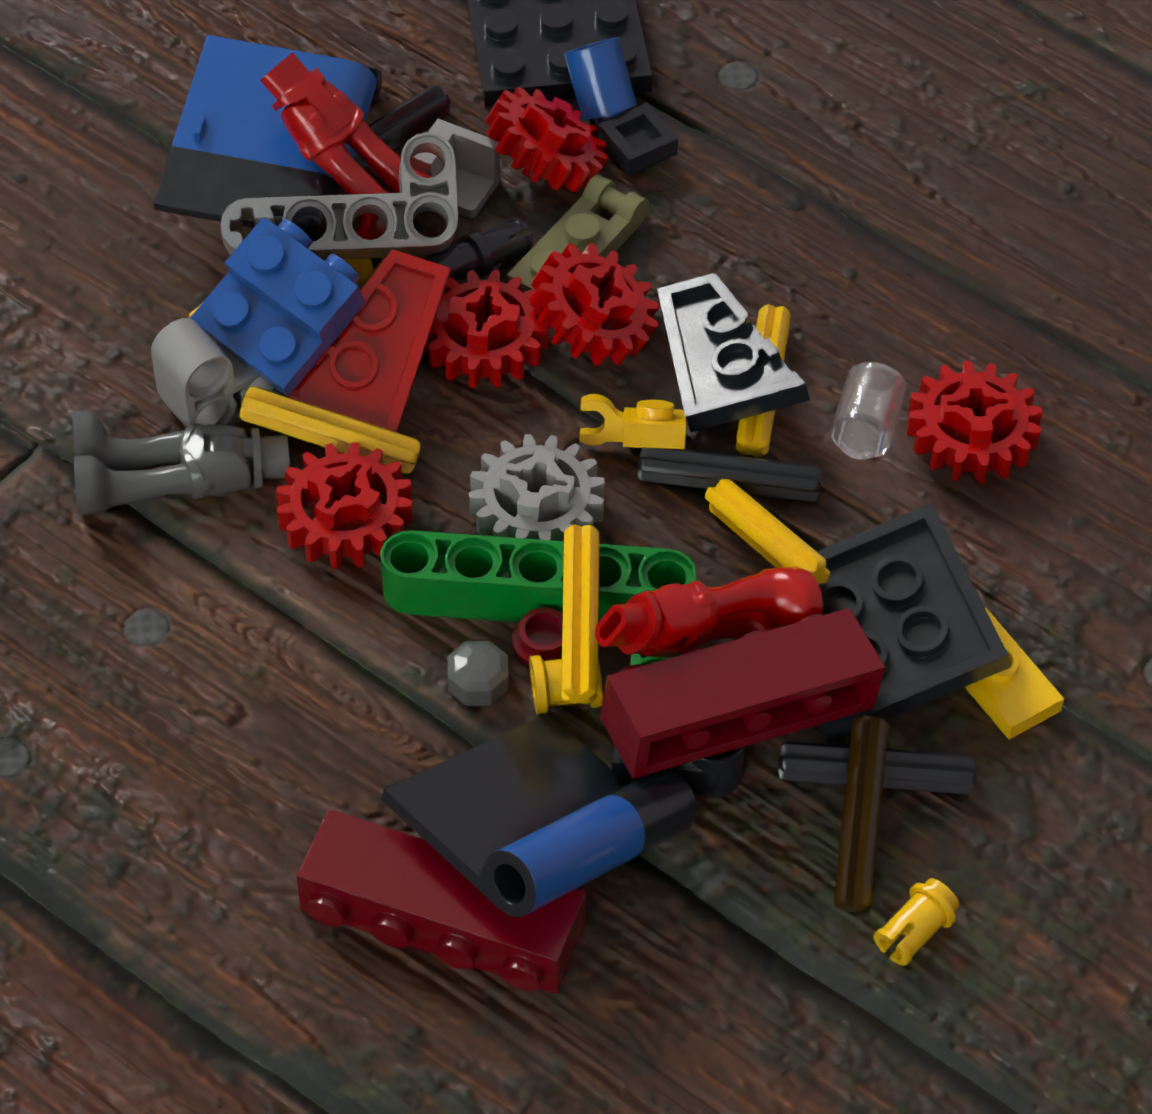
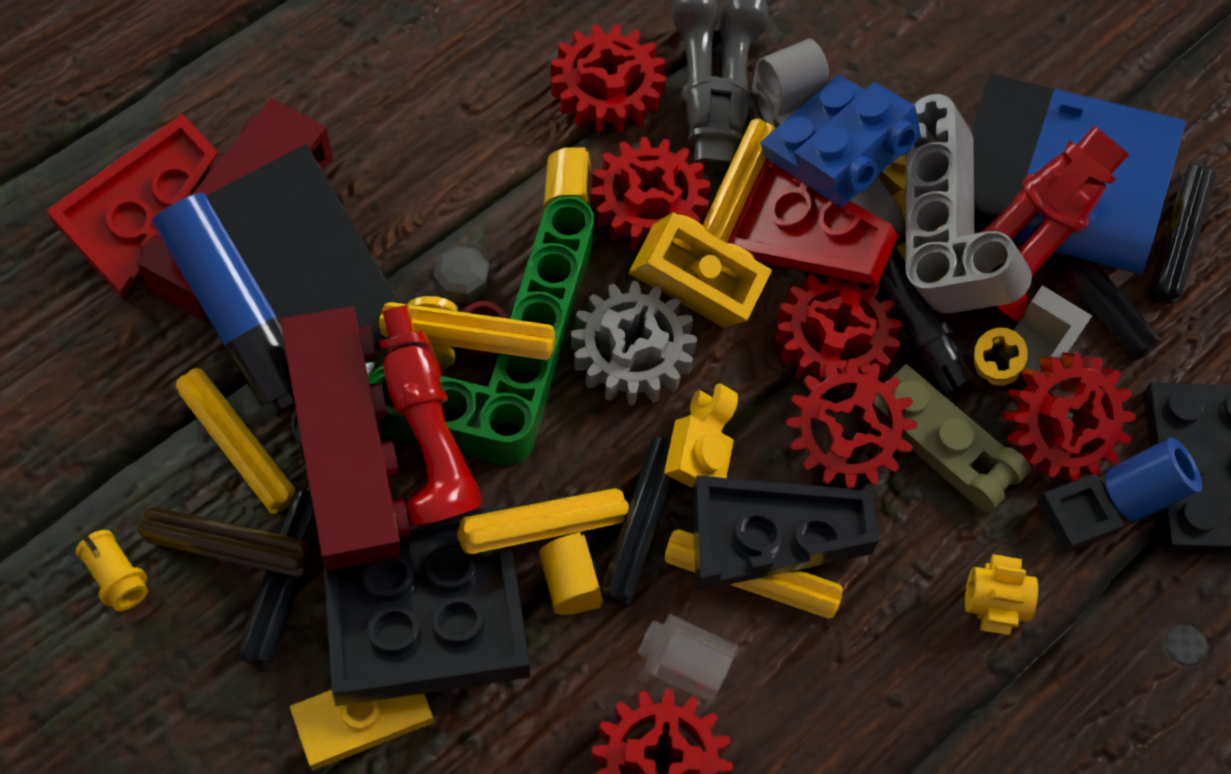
camera: 95 degrees right, 10 degrees up
(188, 564) = (607, 78): none -> red gear
(346, 579) = (568, 175): none -> yellow brick
(450, 430) = (700, 270): none -> yellow brick
(453, 1025) = (114, 210): none -> red wing
(493, 190) = (1012, 343): none -> yellow bush
(732, 847) = (236, 440): none -> yellow axle
(741, 186) = (1001, 594): none -> yellow gear
(814, 509) = (570, 575): none -> yellow brick

